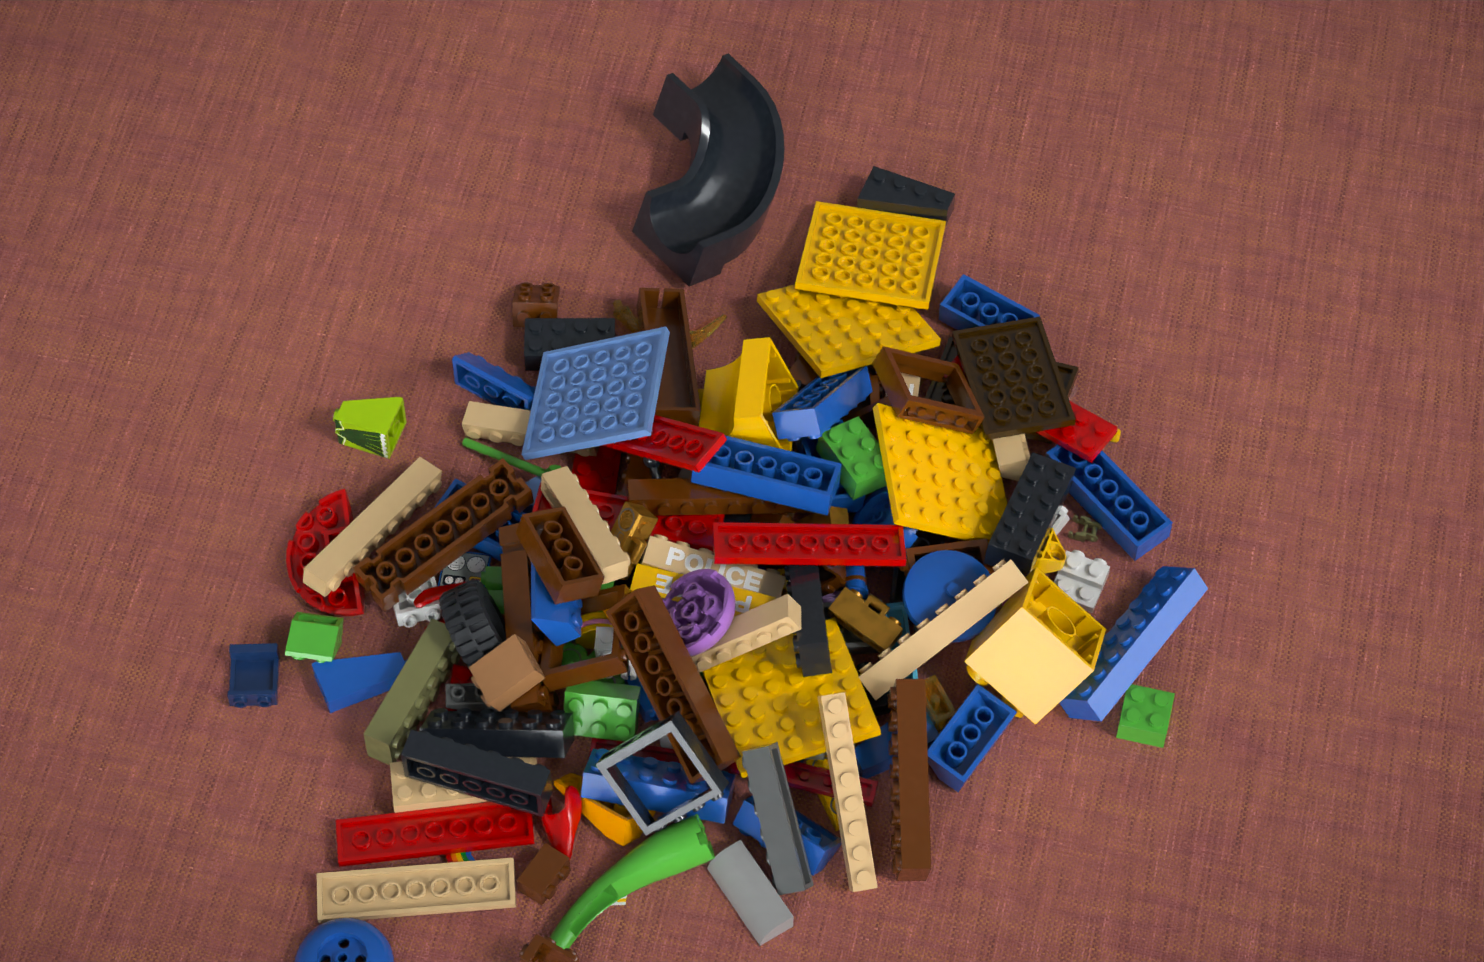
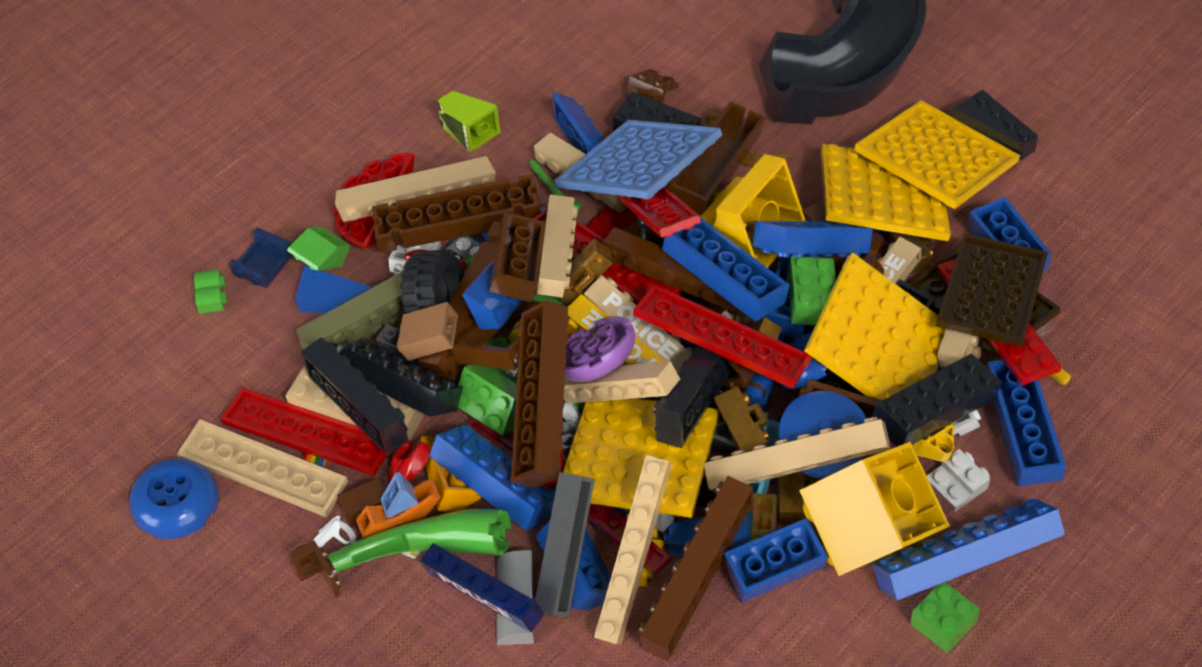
camera: 35 degrees right, 5 degrees down
(224, 736) = (209, 291): none -> bright green brick
(530, 920) = (332, 529): none -> white piece
(584, 852) = (398, 496): none -> medium blue slope
(589, 864) = (373, 519): none -> orange arch
(693, 748) = (516, 456): window -> none
(720, 897) = (482, 587): none -> clear blue brick
(948, 670) = (790, 497): none -> pearl gold piece
(962, 417) = (898, 280): reddish brown window -> none
(1086, 521) = (984, 446): olive piece -> none

